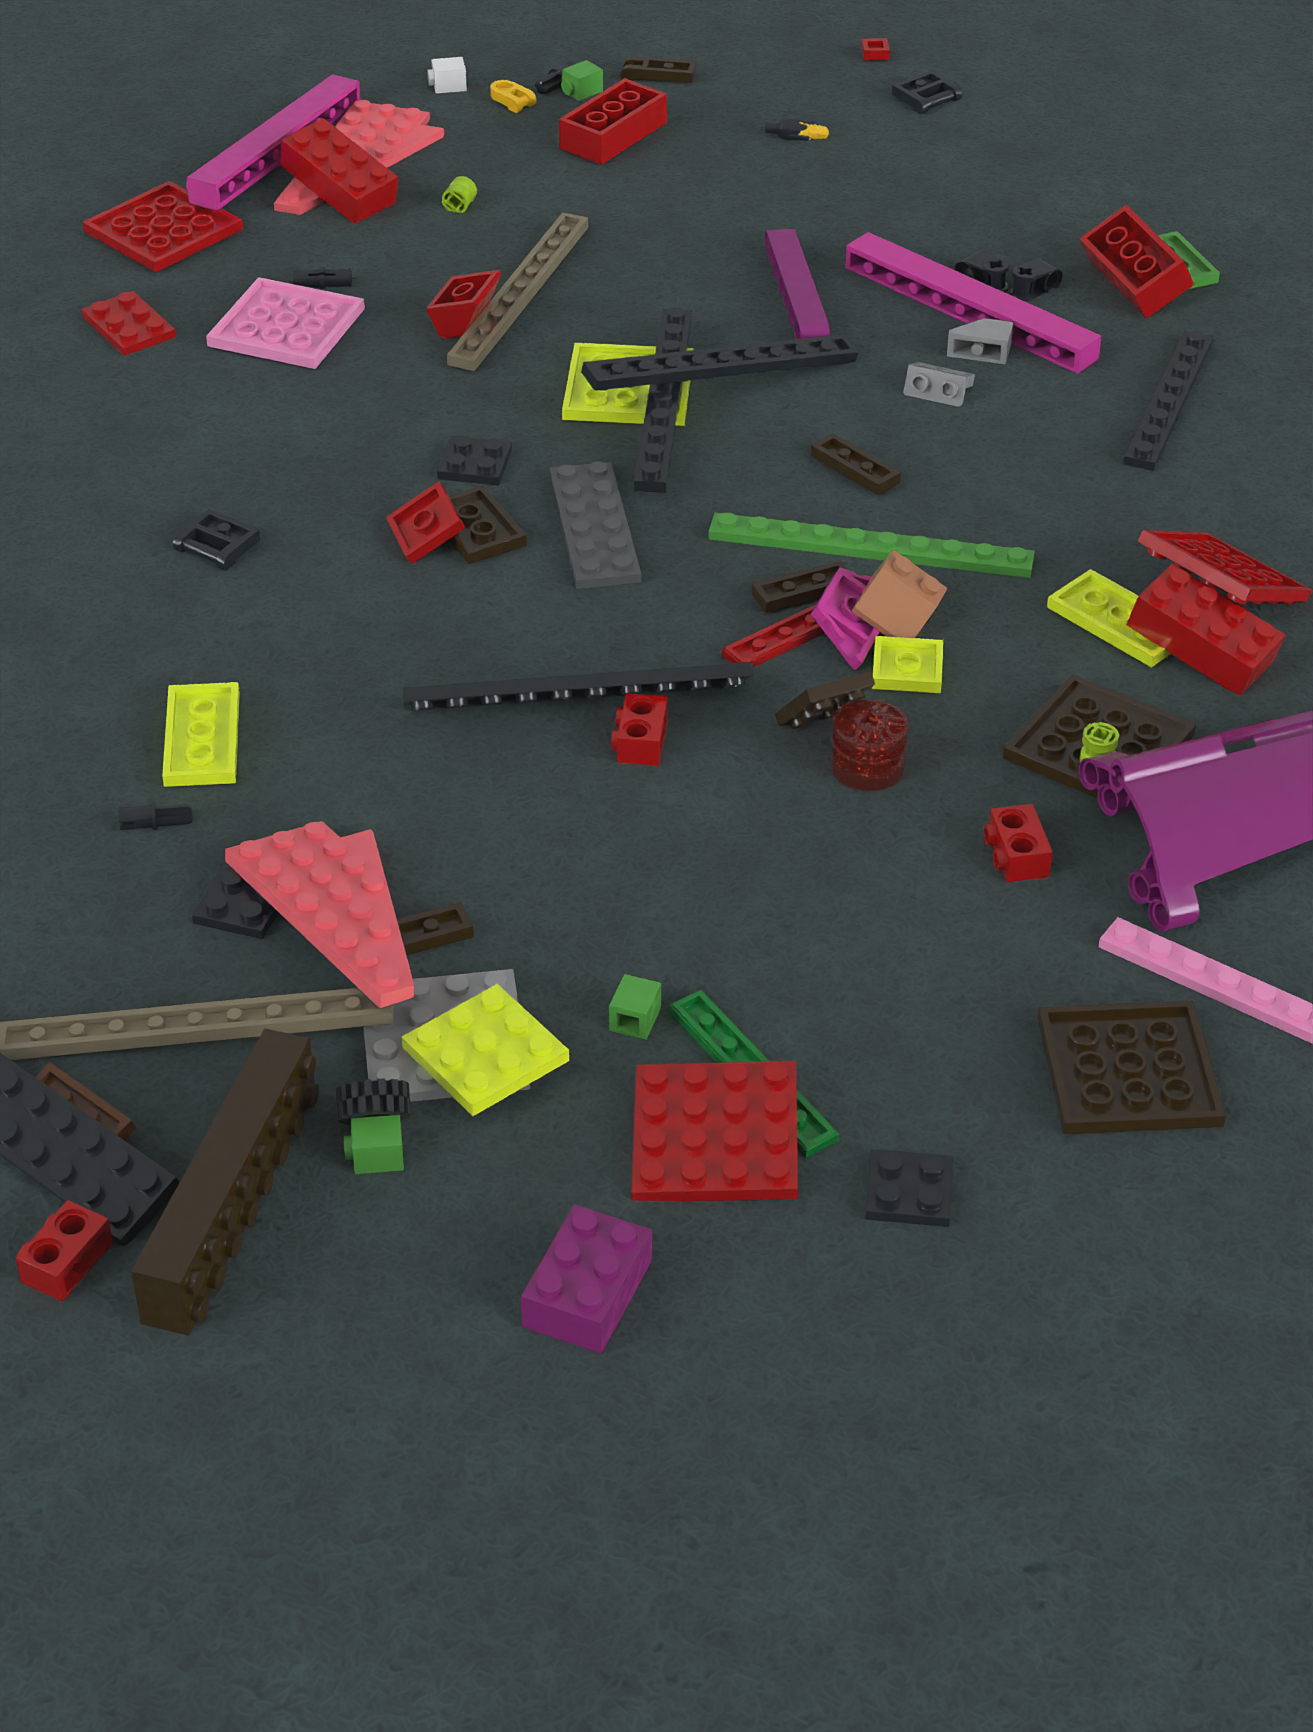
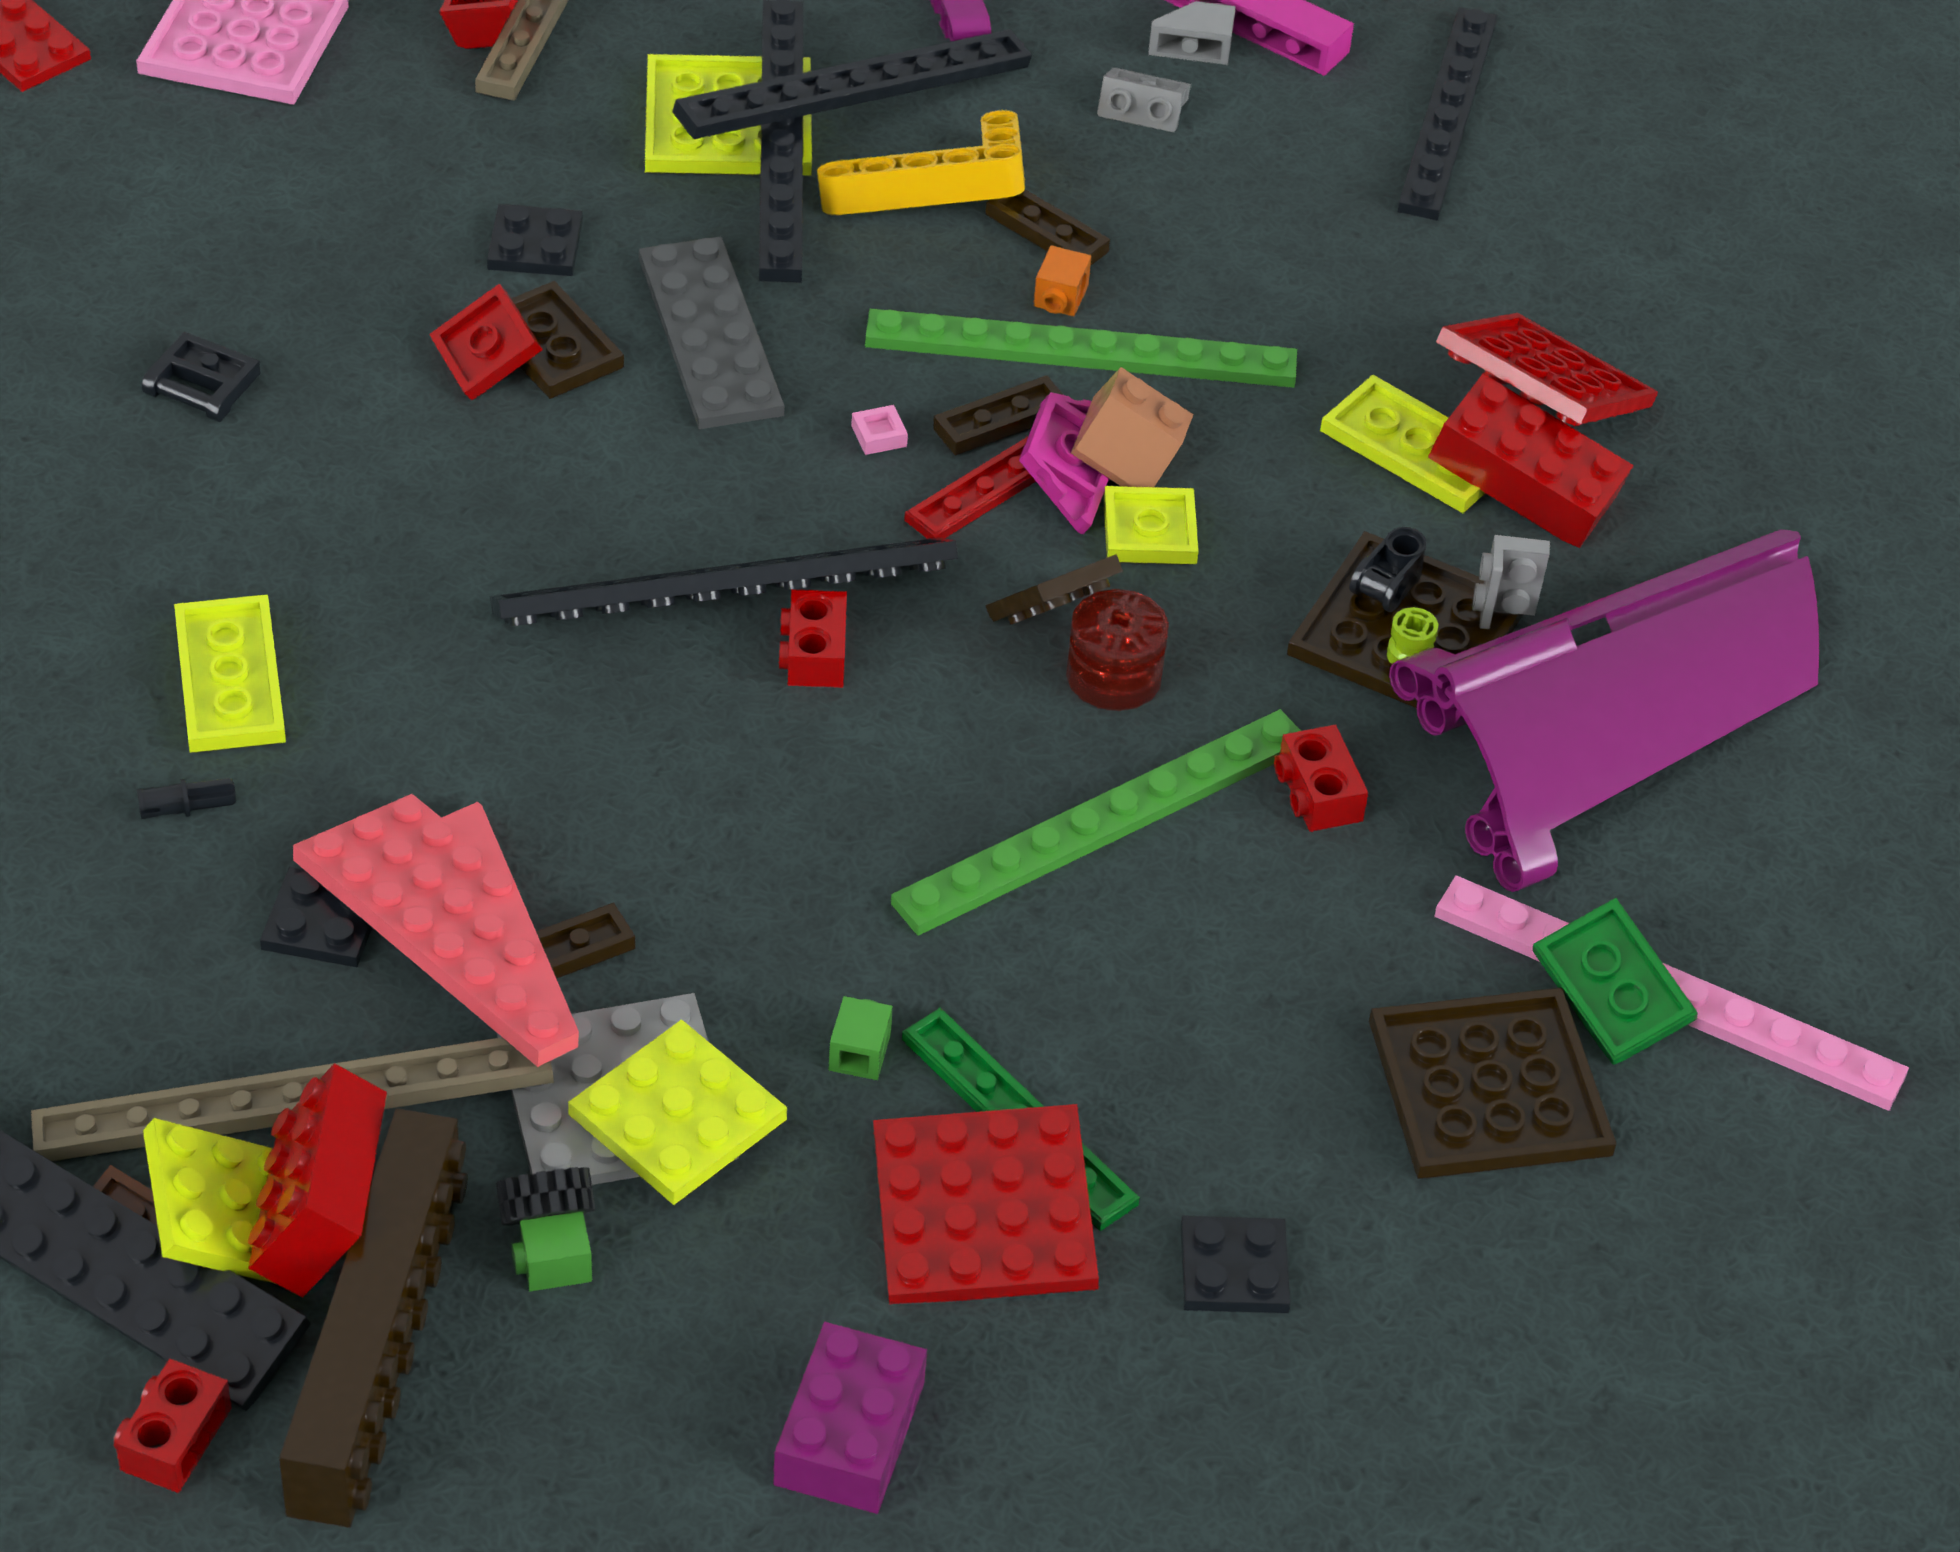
camera: 10 degrees left, 5 degrees up
(129, 1093) = (205, 1194): none -> neon yellow plate
(197, 1077) = (317, 1180): none -> red brick
(710, 592) = (879, 429): none -> bright pink plate
(769, 426) = (929, 176): none -> yellow beam
(835, 868) = (1092, 824): none -> bright green plate
(861, 498) = (1062, 281): none -> orange brick
(1088, 697) = (1391, 568): none -> black piece
(1181, 704) = (1511, 577): none -> light grey bracket
(1236, 998) = (1614, 981): none -> green tile

